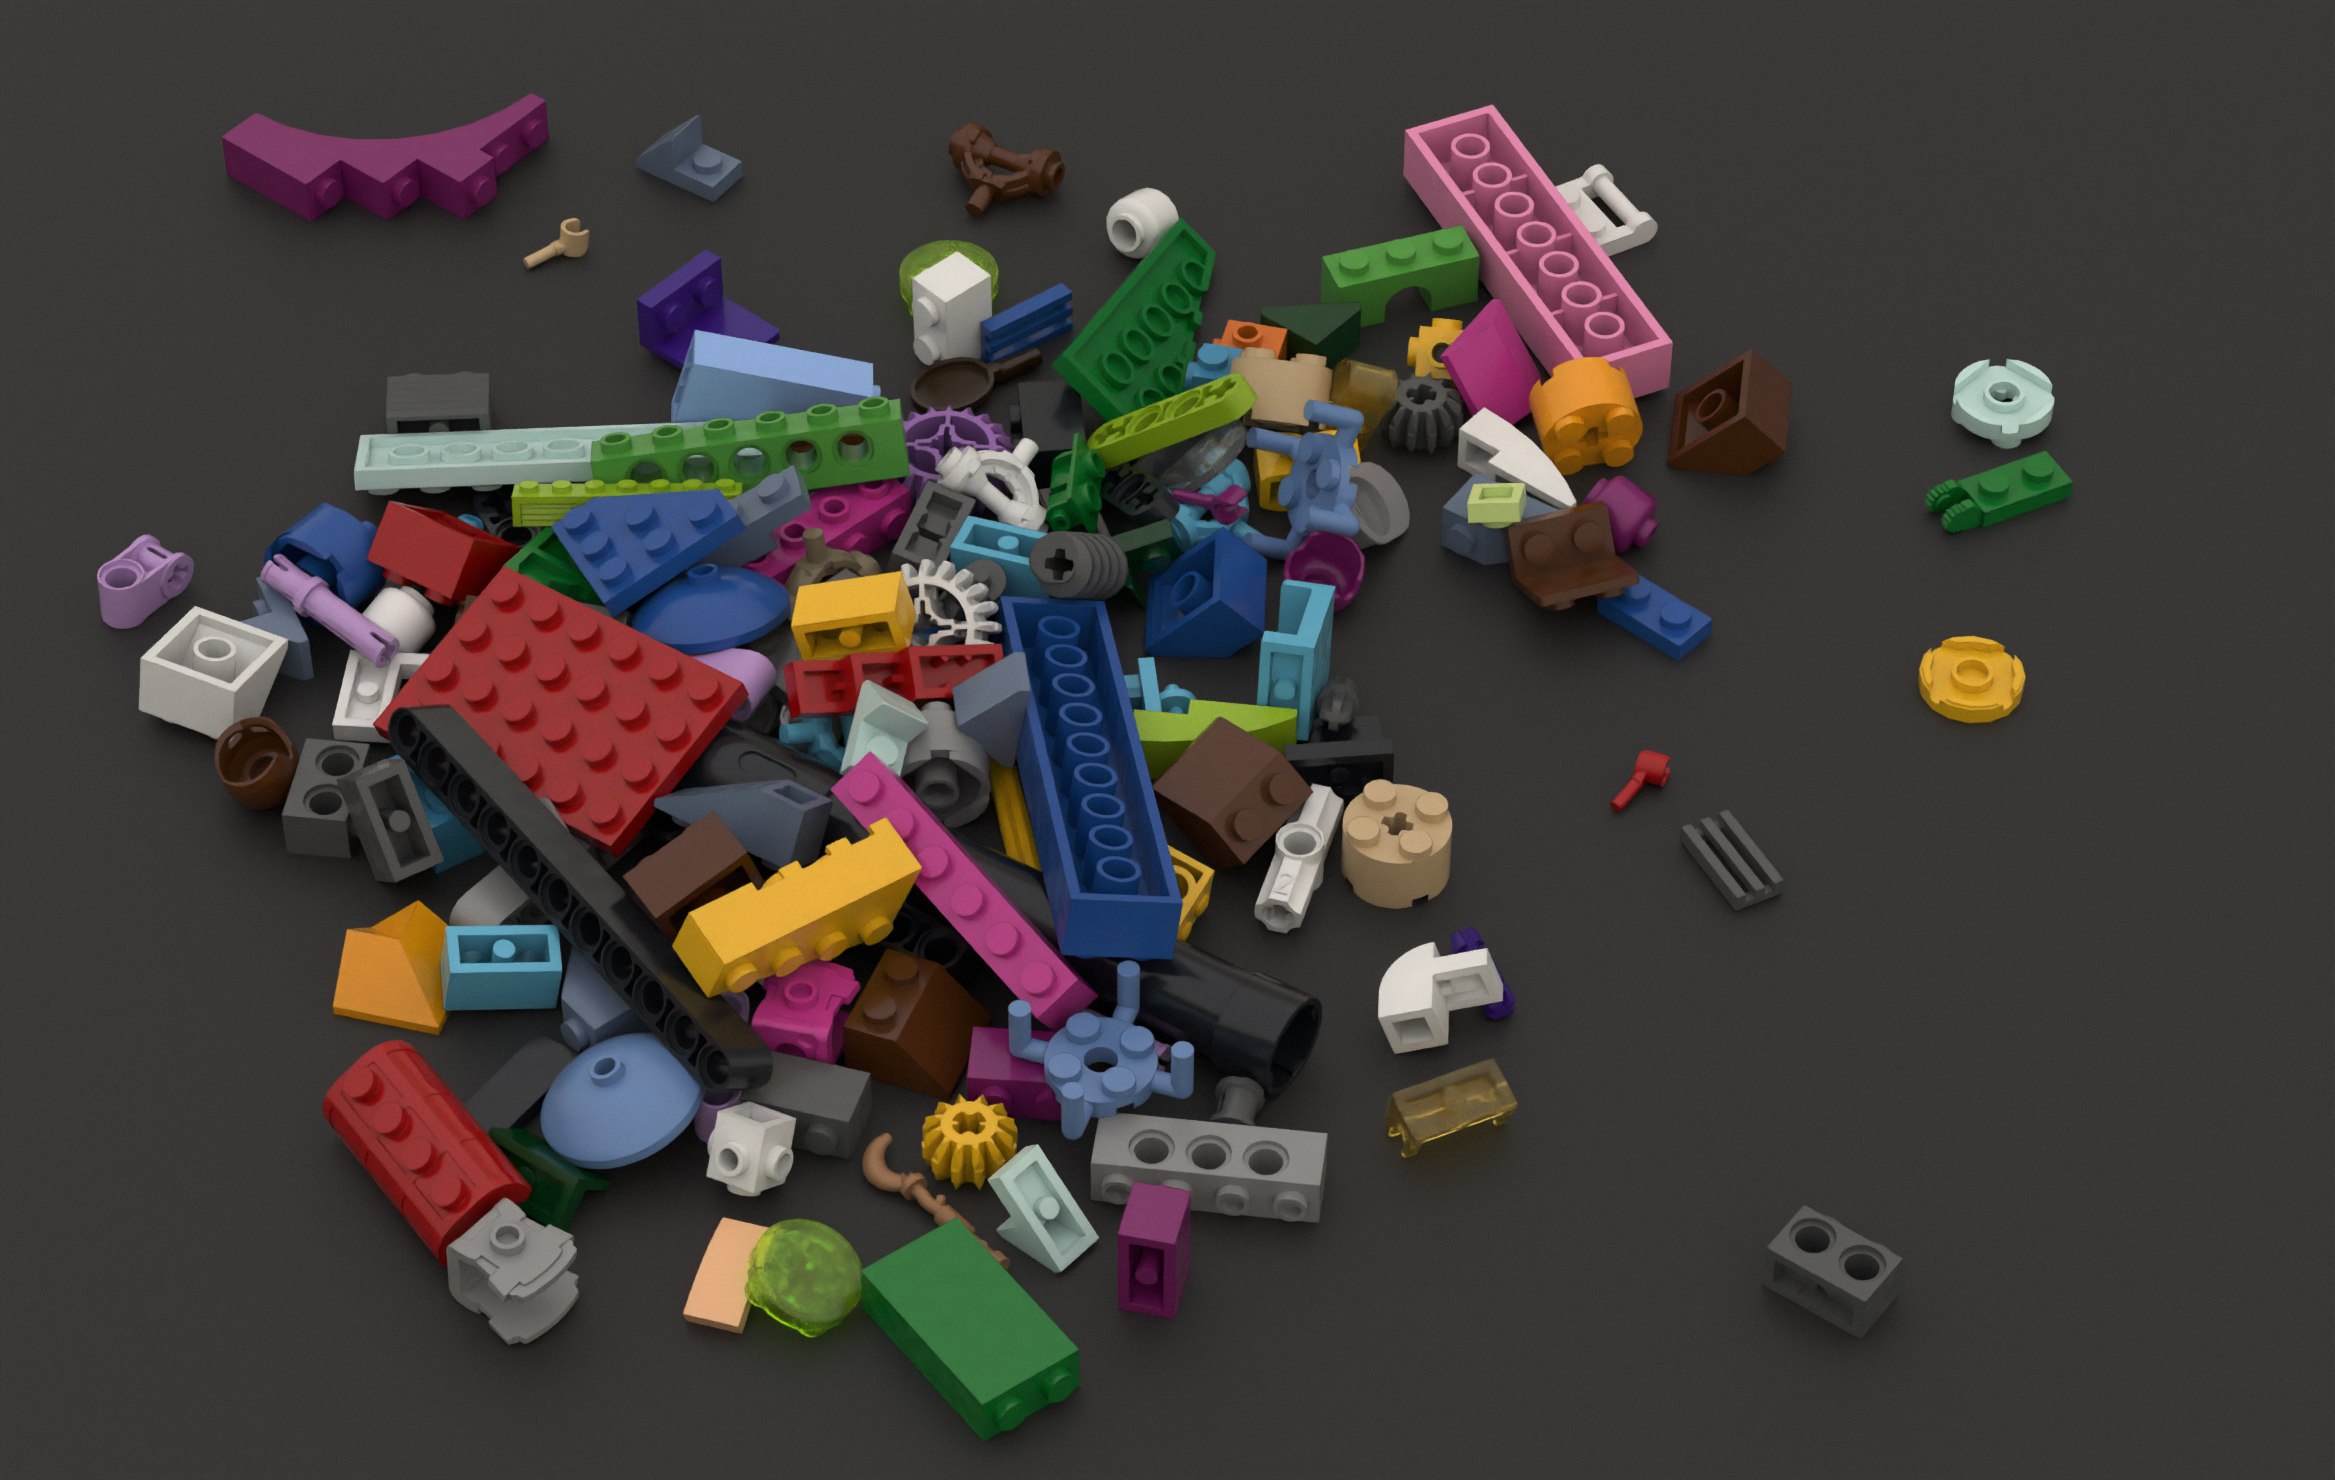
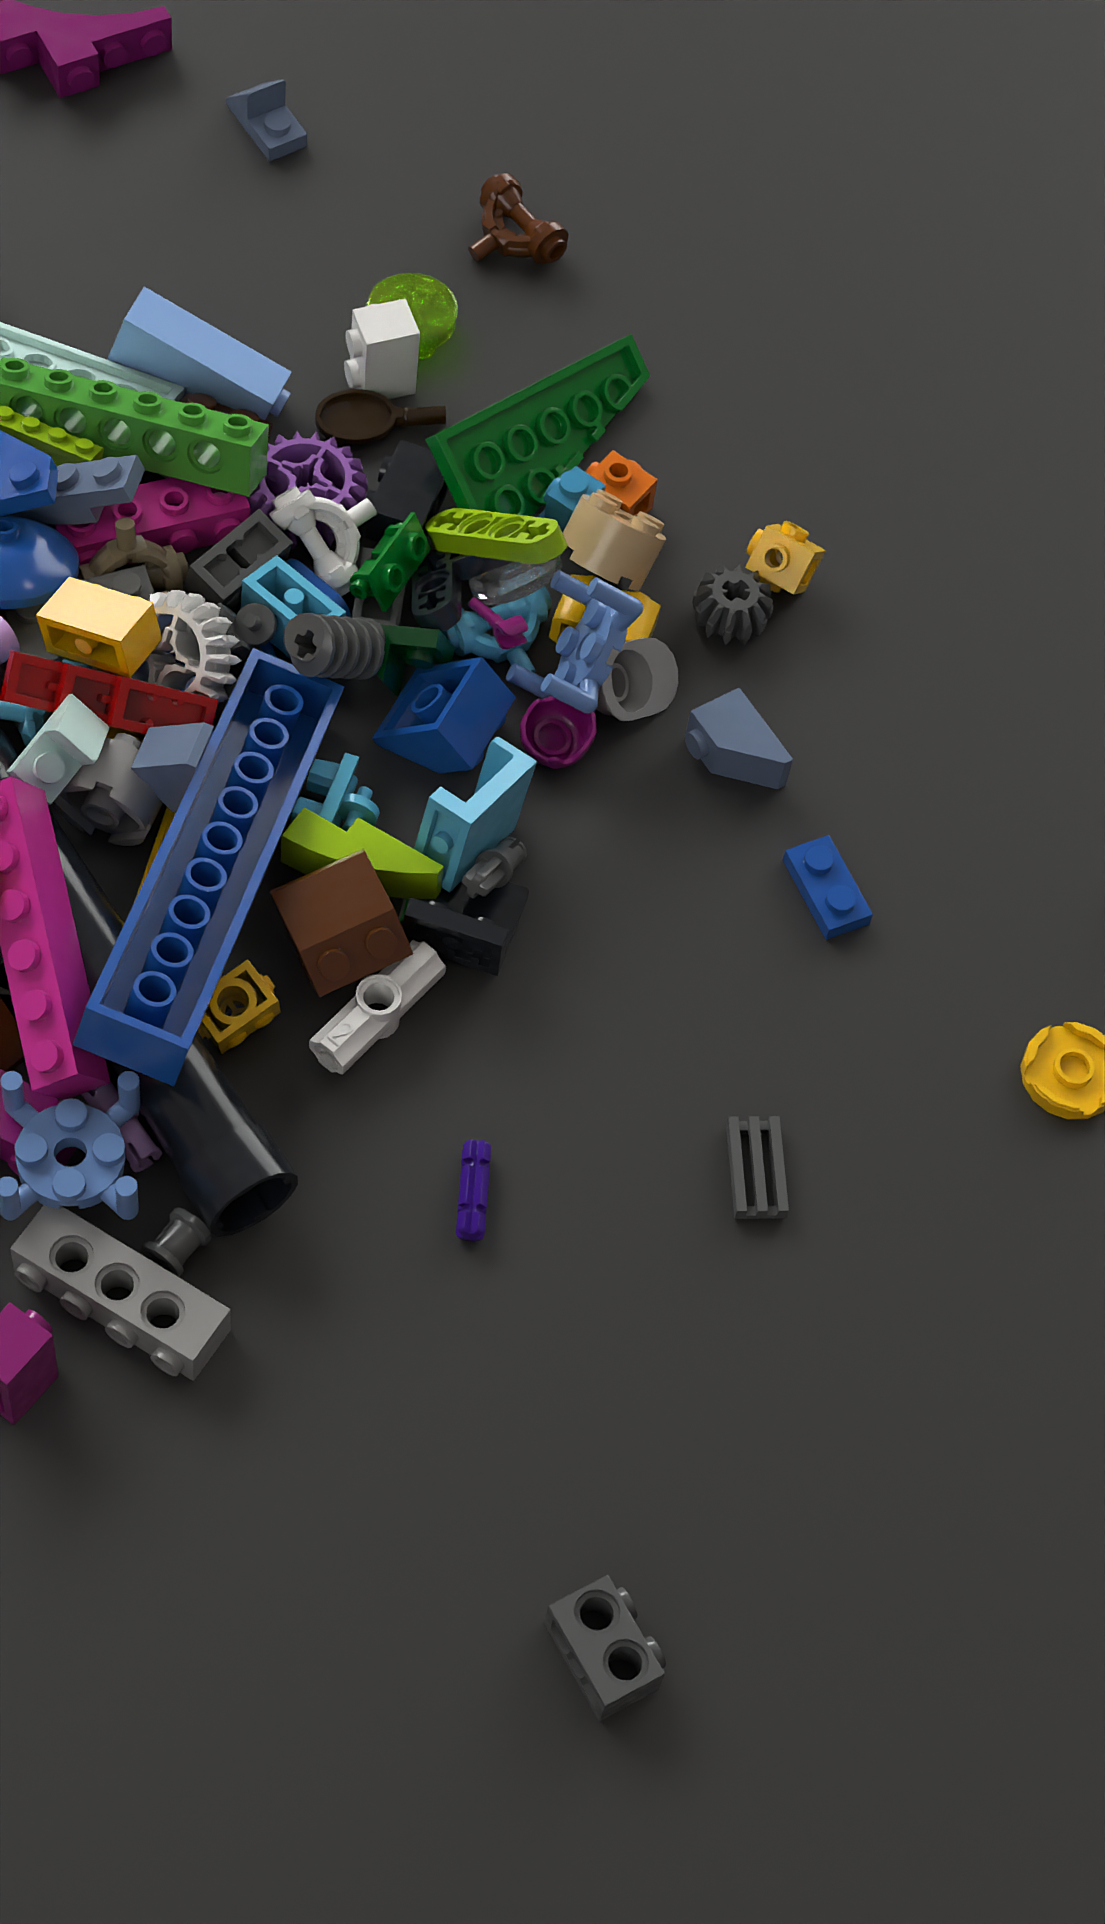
camera: 15 degrees right, 15 degrees up
(571, 244) = (128, 154): tan hand -> none
(691, 302) = (184, 267): dark purple bracket -> none
(1027, 324) = (449, 383): blue tile -> none
(1140, 221) = (599, 322): white head -> none
(1318, 329) = (686, 491): dark green slope -> none
(1365, 389) = (678, 575): clear yellow piece -> none
(1396, 844) = (466, 1030): tan brick -> none
(1425, 987) = (401, 1192): white brick -> none
(1437, 262) = (757, 454): bright green arch -> none
(1449, 1105) = (360, 1323): clear yellow hinge -> none
(1492, 365) = (813, 591): dark pink slope -> none
(1496, 504) = (732, 730): yellowish green plate -> none
(1508, 456) = (781, 693): white slope -> none
(1534, 248) = (913, 497): bright pink brick -> none
(1567, 557) = (774, 805): reddish brown bracket -> none
(1586, 415) = (868, 669): light orange brick -> none
(1597, 182) = (978, 470): white plate -> none
(1629, 511) = (848, 776): magenta head -> none
(1649, 768) = (735, 1042): red hand -> none
(1732, 418) = (999, 721): reddish brown slope -> none

